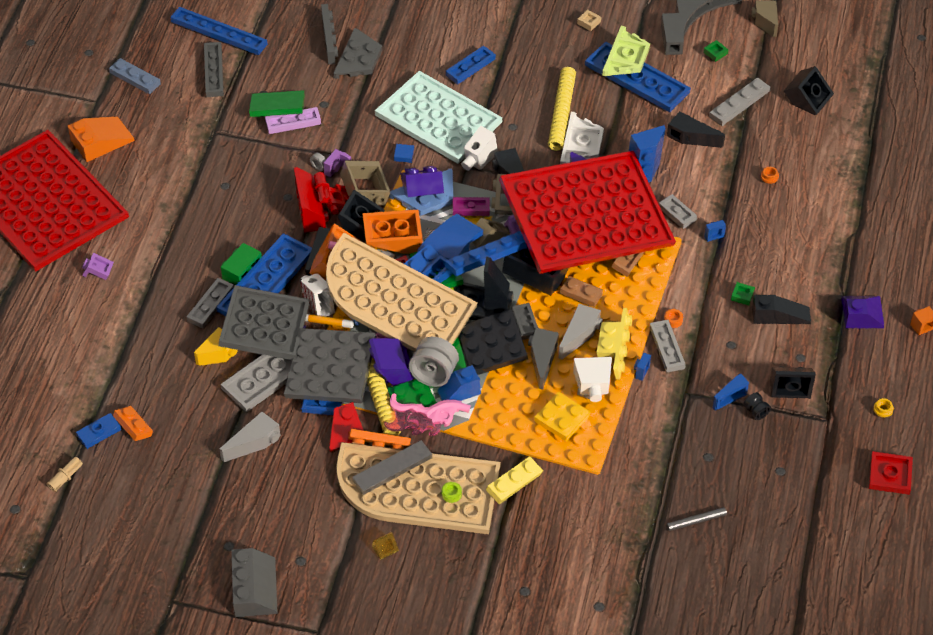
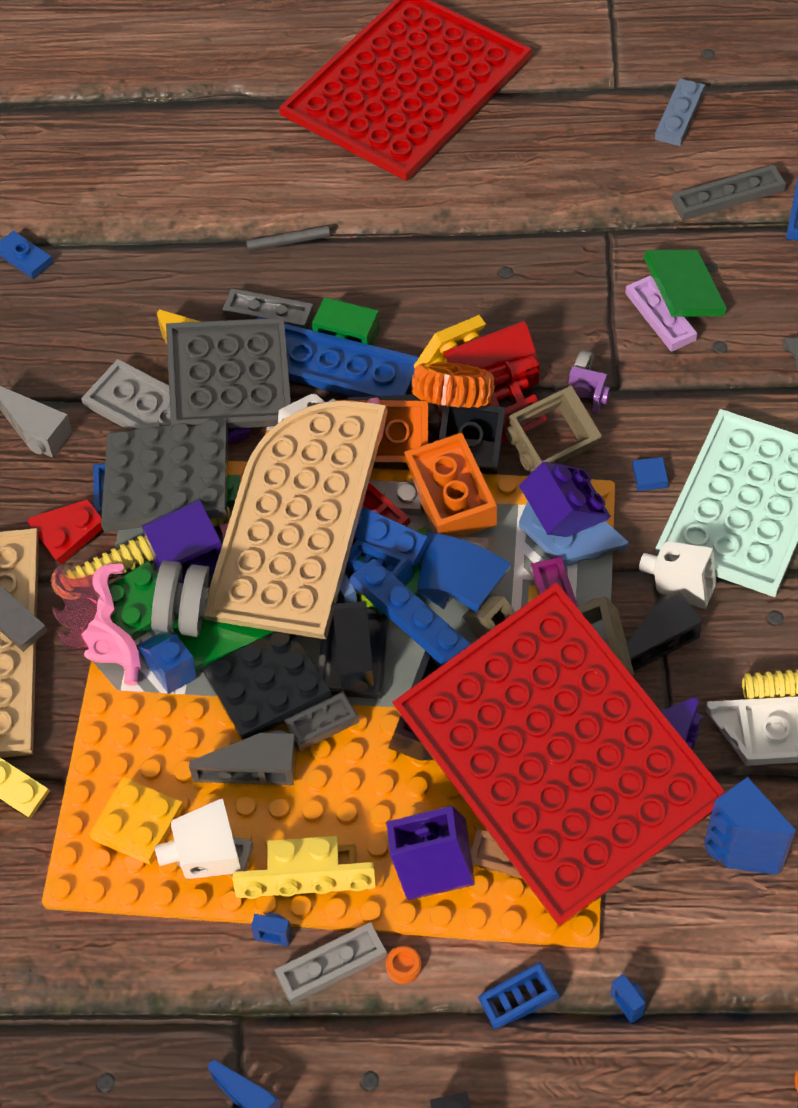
camera: 80 degrees right, 5 degrees up
(98, 136) = (542, 104): orange slope -> none
(98, 266) = (300, 171): medium lavender bracket -> none
(132, 423) = (37, 284): orange plate -> none
(150, 285) = (288, 238): none -> flat silver bar
(288, 212) = (450, 338): none -> yellow plate
(332, 205) = (453, 384): none -> orange gear
(378, 439) = (42, 563): orange plate -> none
(581, 291) = (414, 790): medium nougat plate -> none
(581, 329) = (322, 807): light grey slope -> none
(623, 283) = (431, 852): none -> dark purple slope
(677, 211) = (657, 923): light grey plate -> none
(698, 261) = (525, 978): none -> blue slope
(742, 293) = (487, 1077): green plate -> none

